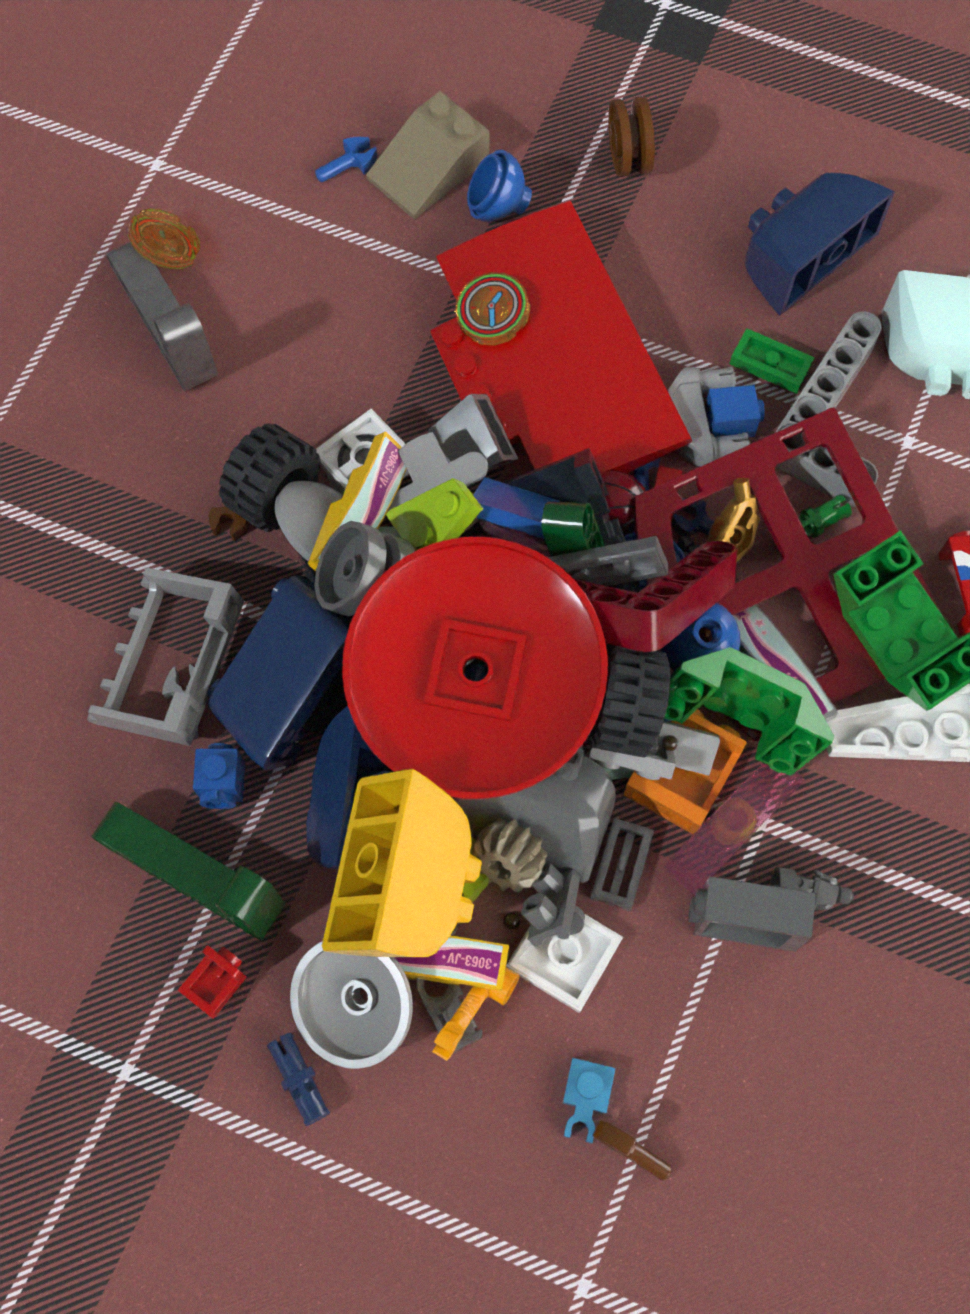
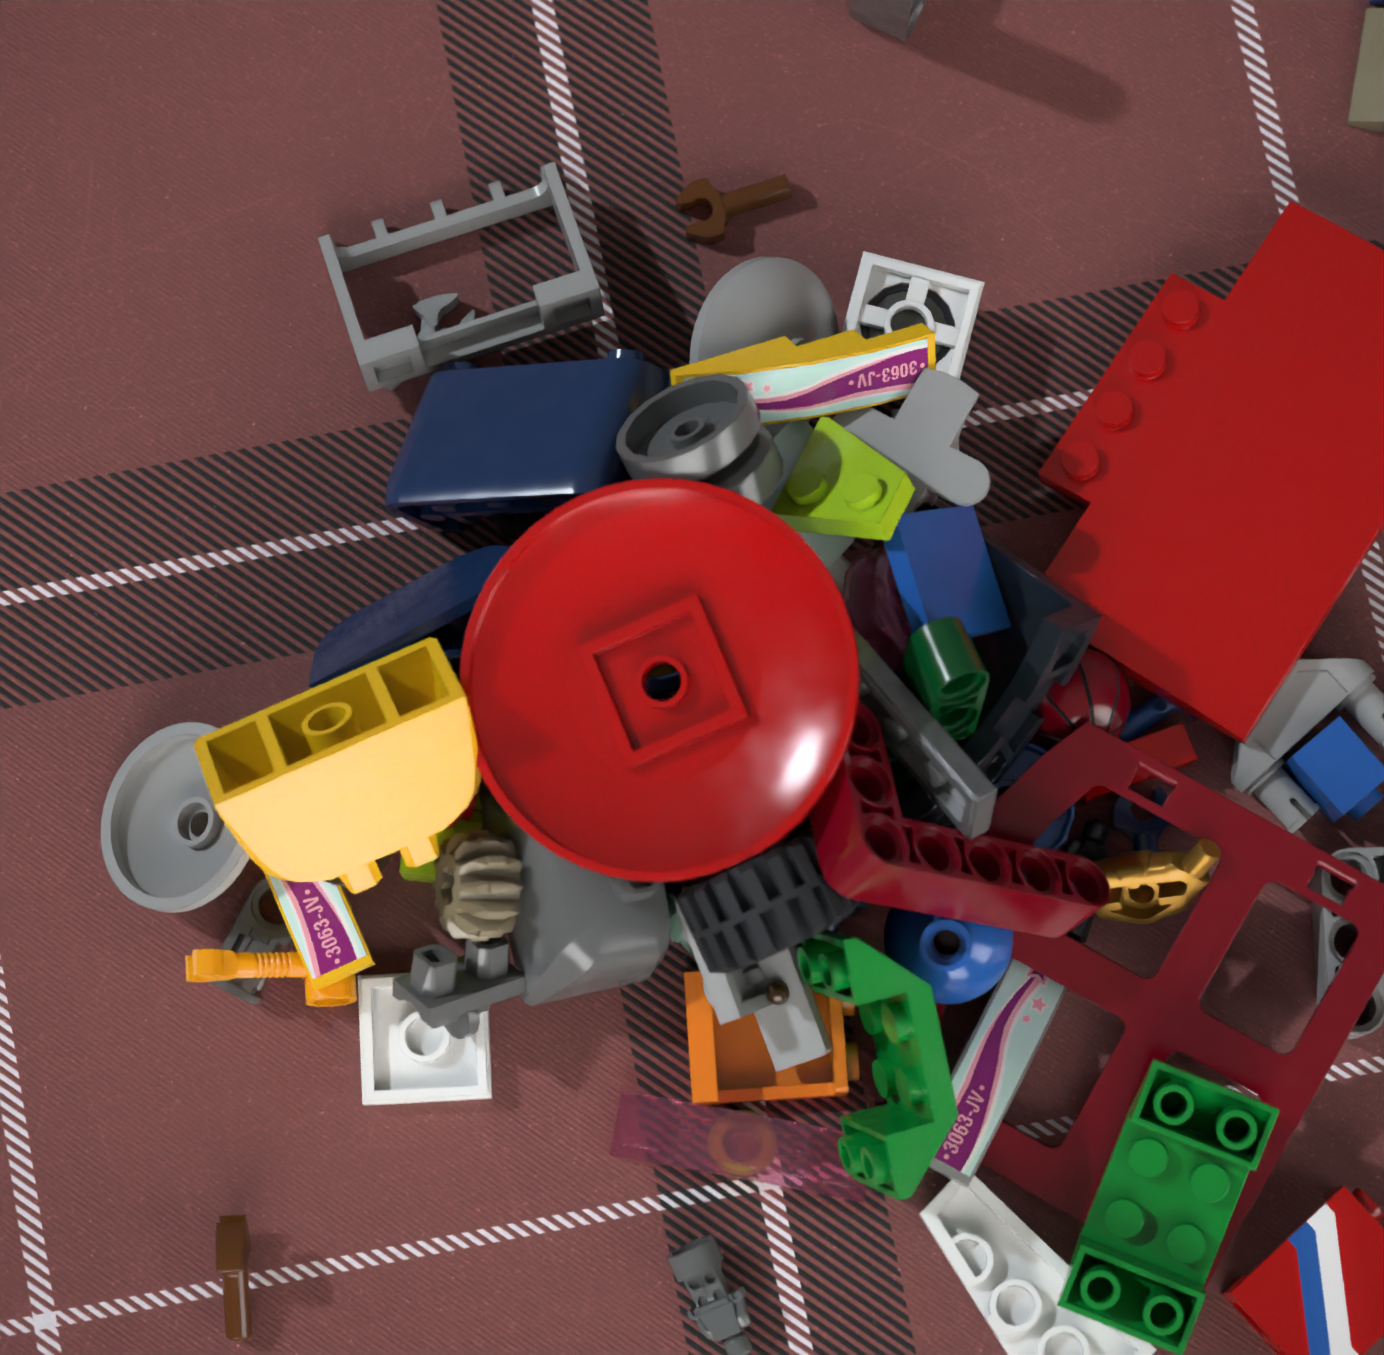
camera: 55 degrees right, 10 degrees up
(213, 980) = (102, 635): red bracket -> none
(219, 776) = (351, 456): blue brick -> none
(235, 896) = (212, 598): dark green beam -> none
(261, 469) = (788, 212): black tyre -> none
(298, 1079) = (57, 819): dark blue pin -> none
(474, 428) = (1032, 446): dark grey torso -> none
(492, 308) = (1253, 337): tile -> none
(511, 920) = (422, 940): dark brown piece -> none
(589, 1091) = (272, 1177): dark azure plate -> none
(612, 898) = (638, 1020): flat silver tile -> none
(752, 914) = (616, 1237): dark grey window -> none
(823, 516) = (1255, 987): green pin -> none

